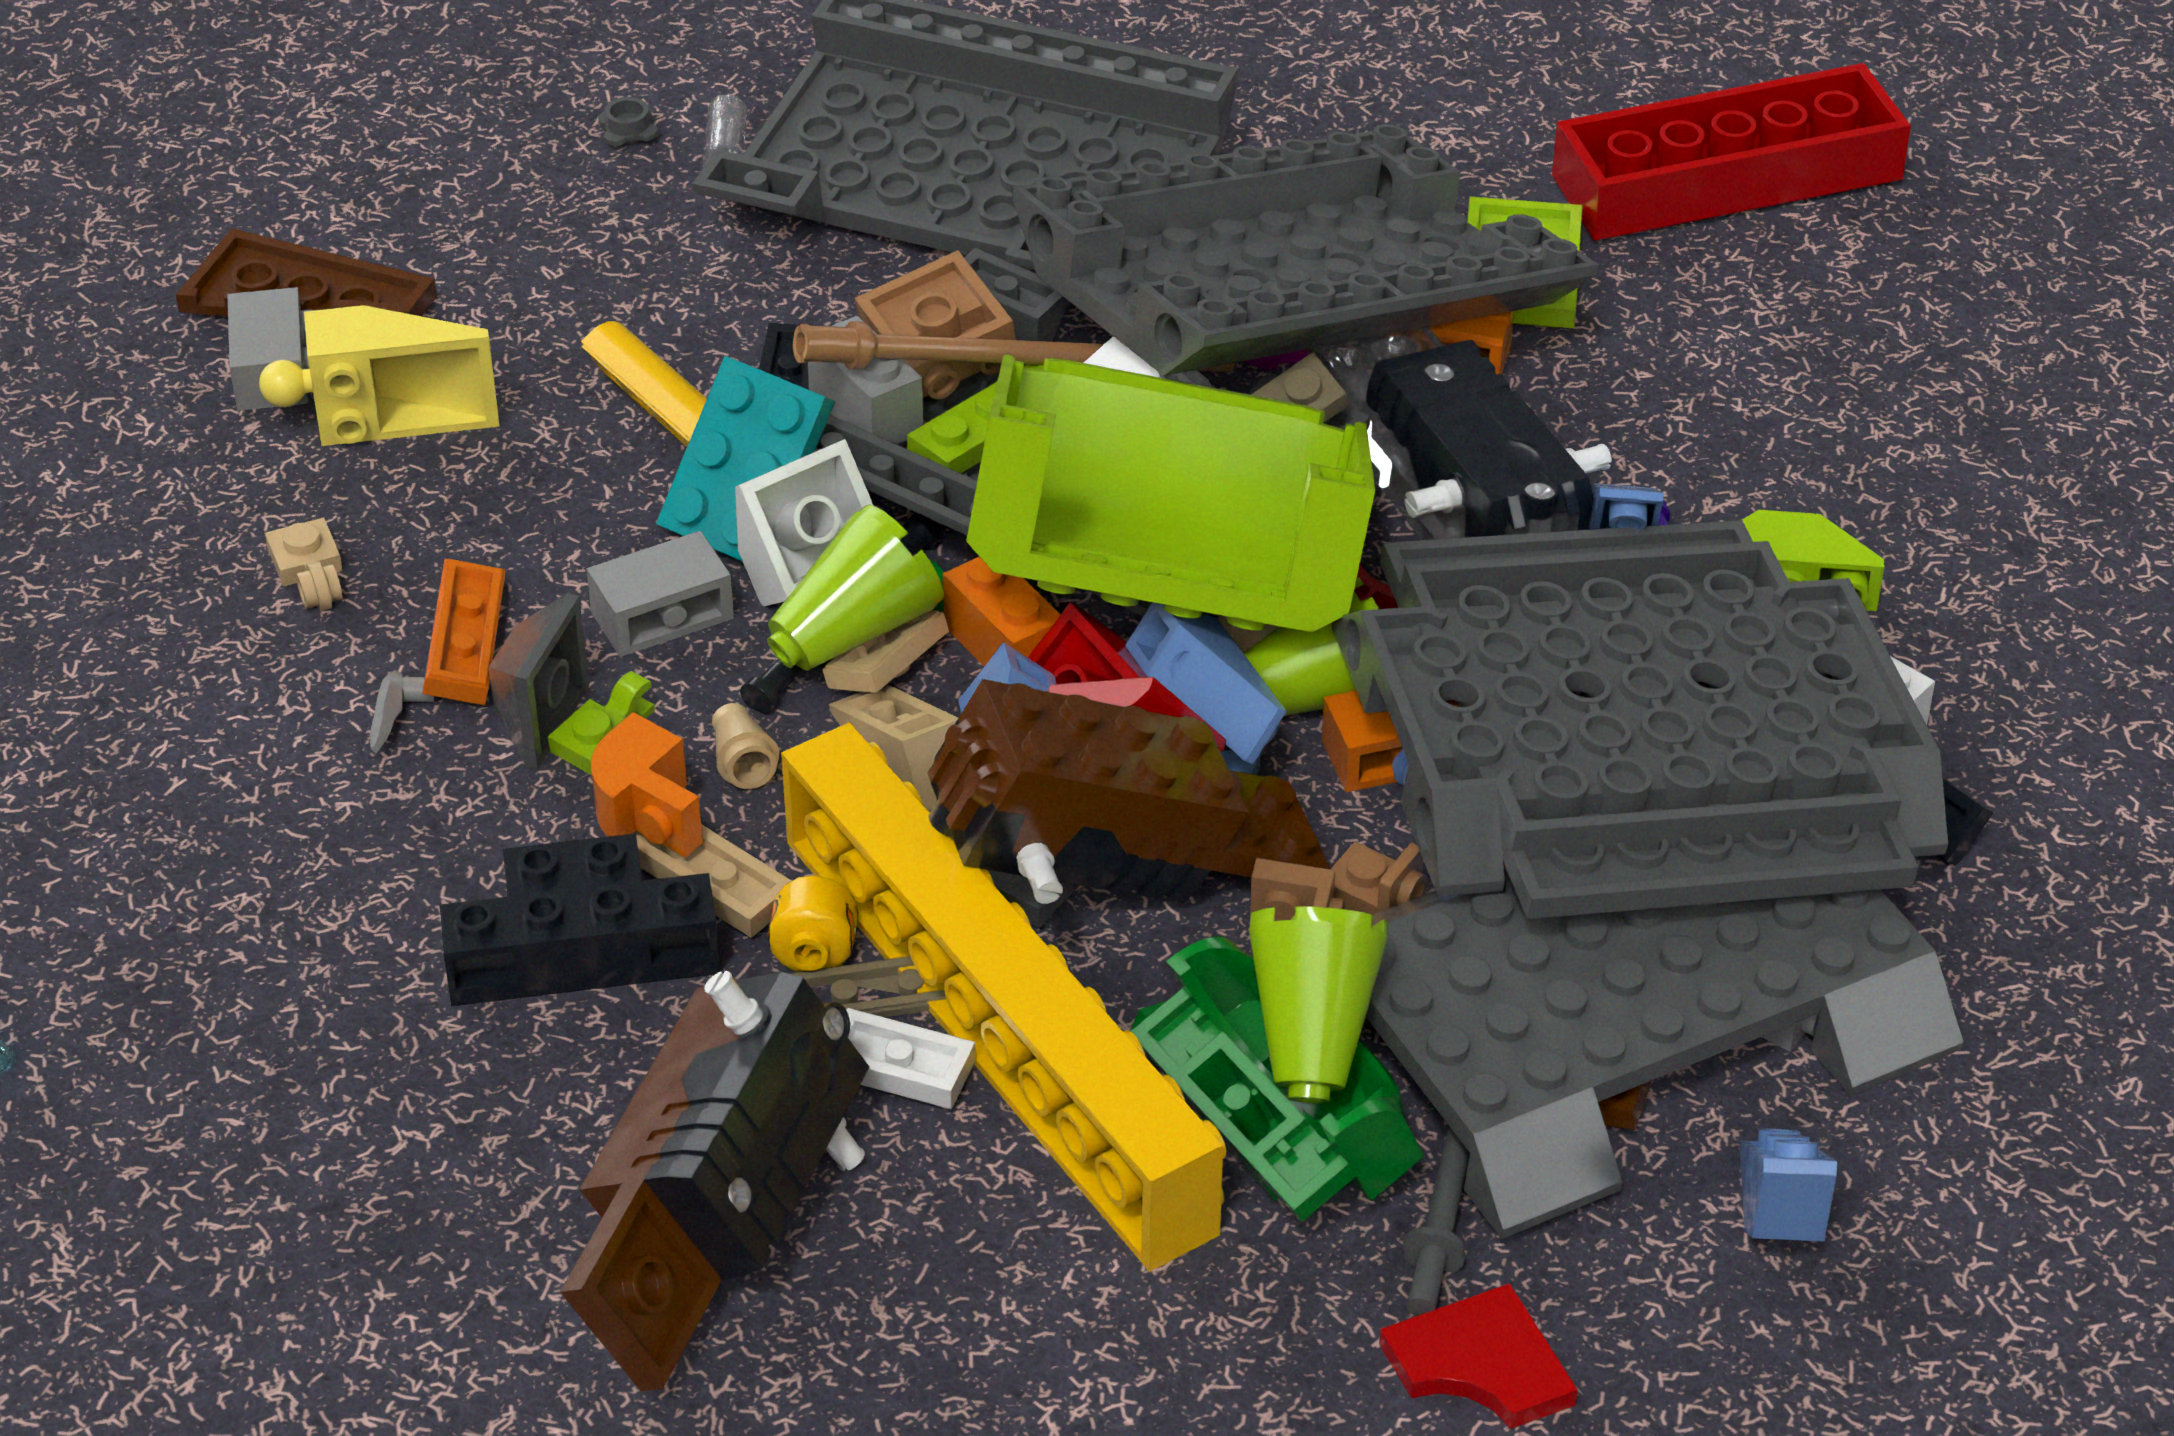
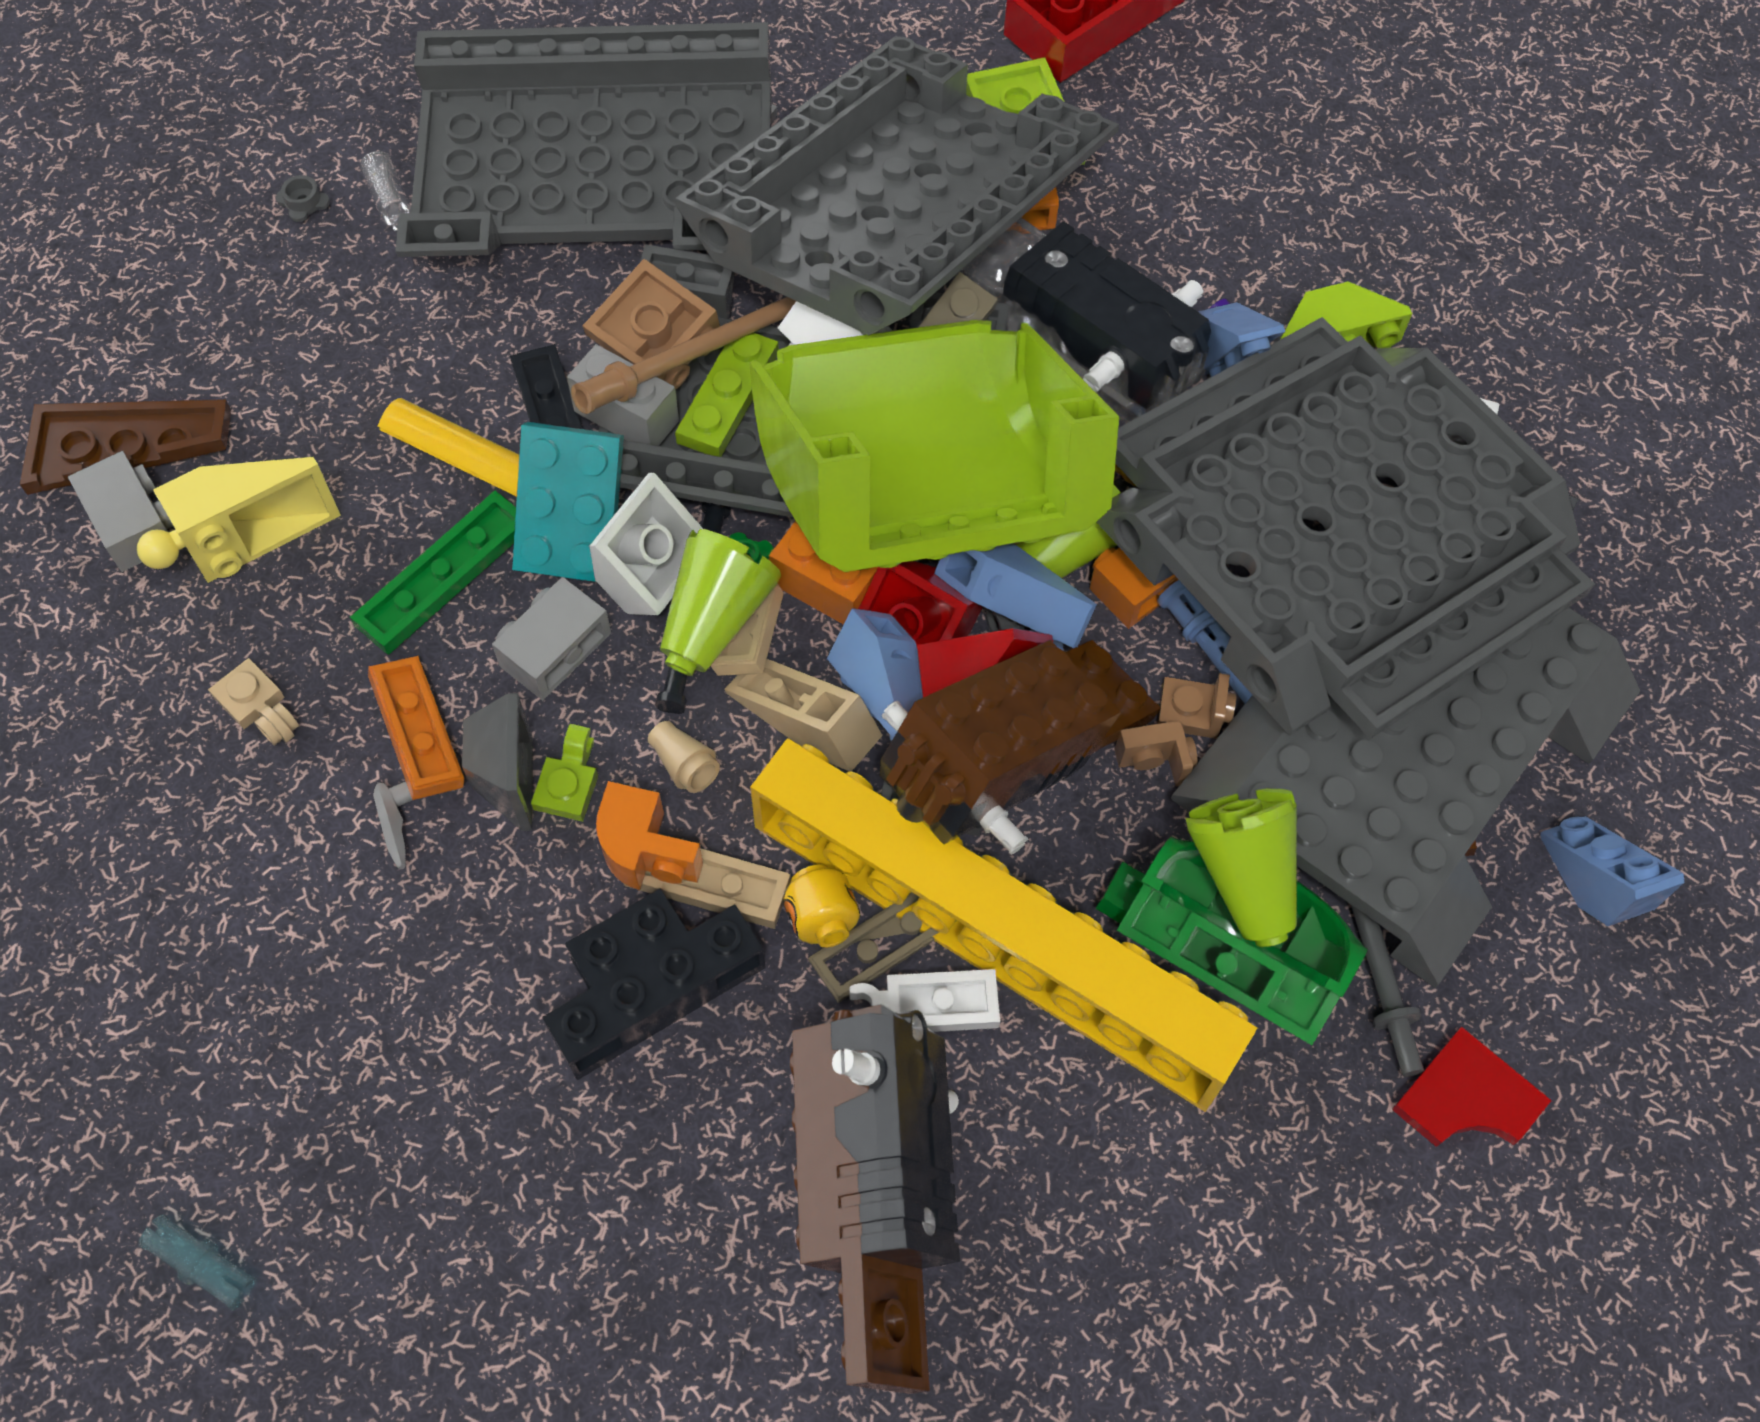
camera: 25 degrees left, 20 degrees up
(567, 502) = (438, 574): none -> green plate

